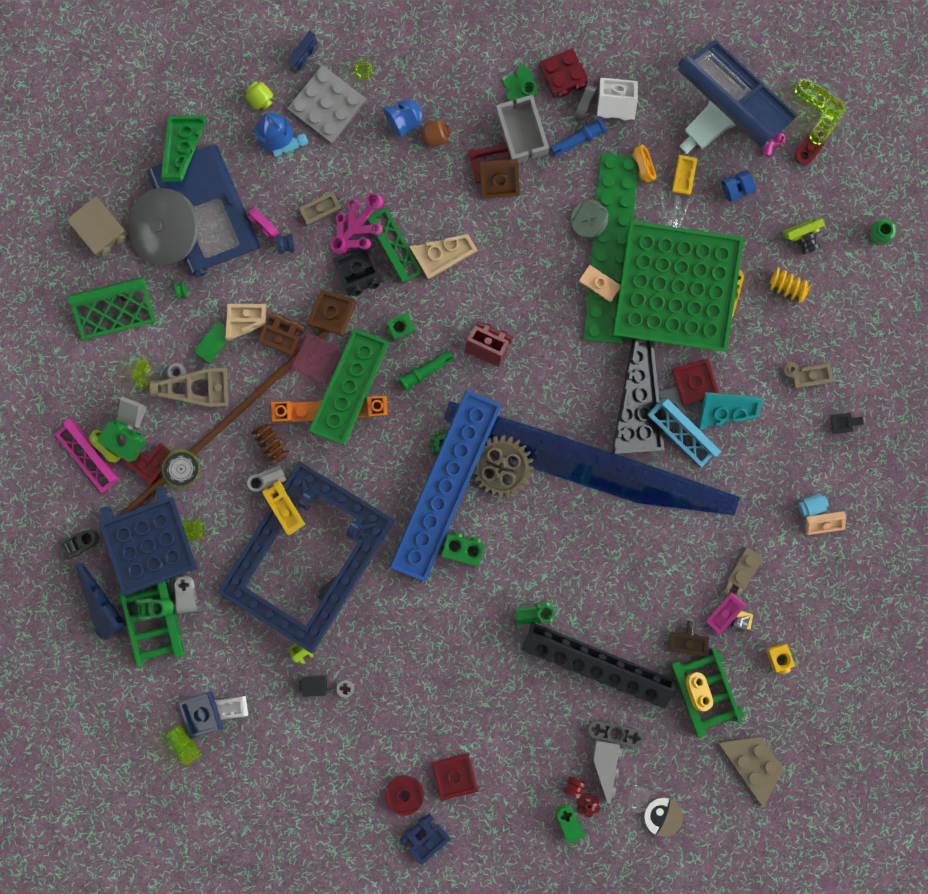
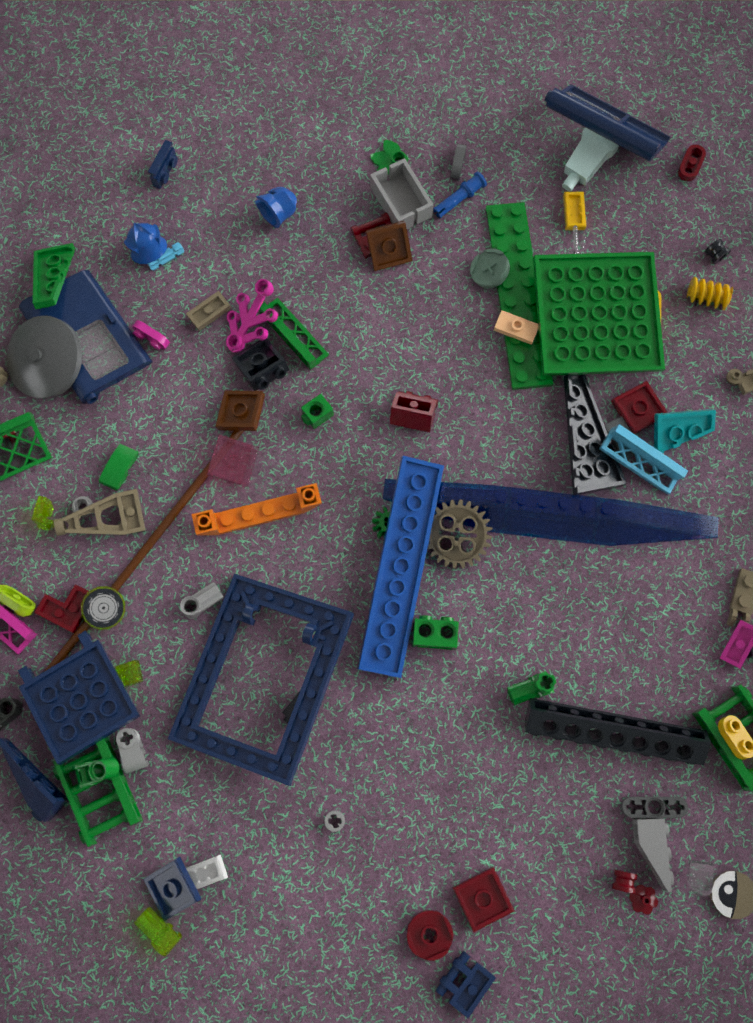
camera: 15 degrees left, 10 degrees down
(111, 439) = (18, 588): green brick -> none
(131, 412) = (37, 557): light grey slope -> none
(181, 290) = (74, 419): green bush -> none
(244, 318) = (147, 435): tan wing -> none
(259, 95) = (125, 213): lime head -> none
(270, 443) = (198, 560): reddish brown piece -> none
(279, 339) = (189, 449): reddish brown plate -> none
(283, 508) = (226, 627): yellow plate -> none
(285, 243) = (178, 351): dark blue wheel -> none
(298, 653) = (273, 788): lime tile -> none
(313, 685) = (297, 825): black brick -> none
(327, 104) = (197, 211): light grey plate -> none
(349, 387) = (274, 484): green plate -> none
(362, 64) = (229, 177): clear neon green bush -> none
(418, 374) = (346, 456): green pin -> none
(435, 133) = (313, 216): dark orange head -> none
(443, 254) = (346, 332): tan wing -> none
(563, 73) = (430, 140): dark red plate -> none
(570, 826) = (630, 929): green piece -> none
(617, 98) = (490, 153): white slope -> none
(645, 163) = (527, 200): light orange plate -> none
(688, 642) = (707, 684): dark brown plate -> none
(744, 183) = (632, 209): blue wheel -> none
(767, 150) = (650, 167): dark pink arm -> none
(810, 226) = (702, 242): lime plate -> none
(829, 111) = (700, 121): clear neon green beam -> none

